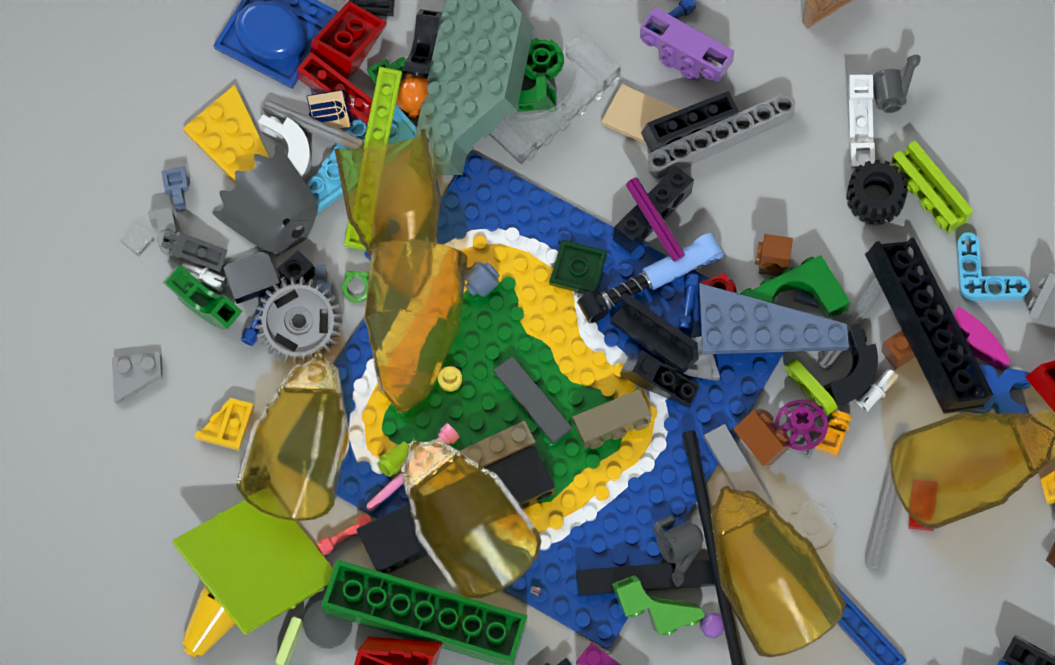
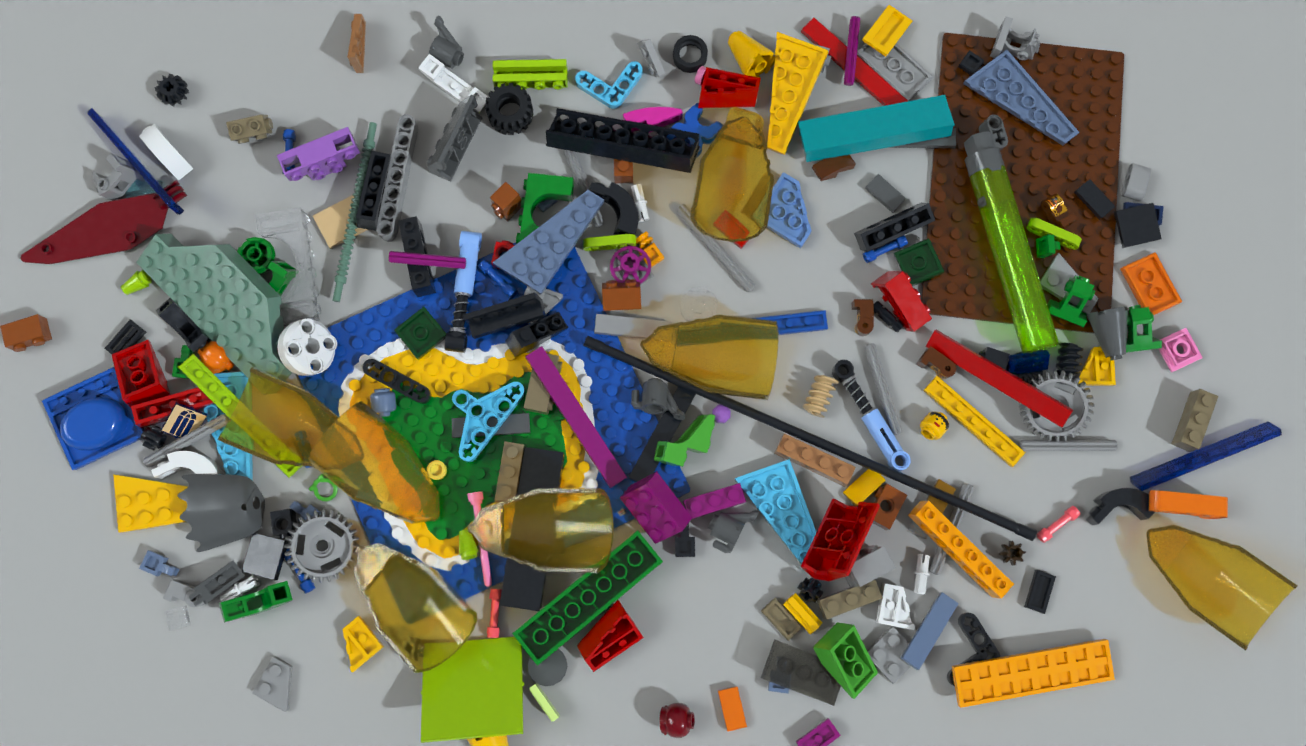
camera: 60 degrees left, 10 degrees up
(295, 94) = (153, 437): none -> black gear
(483, 169) = (306, 347): none -> white piece
(512, 279) = (397, 380): none -> black beam
(525, 385) = (490, 408): none -> medium azure beam
(563, 617) = (656, 507): none -> magenta brick
(576, 154) = (340, 279): none -> sand green hose
(600, 475) = (575, 417): none -> magenta tile
(803, 163) = (455, 139): none -> dark grey piece
(983, 546) = (788, 211): none -> medium blue plate

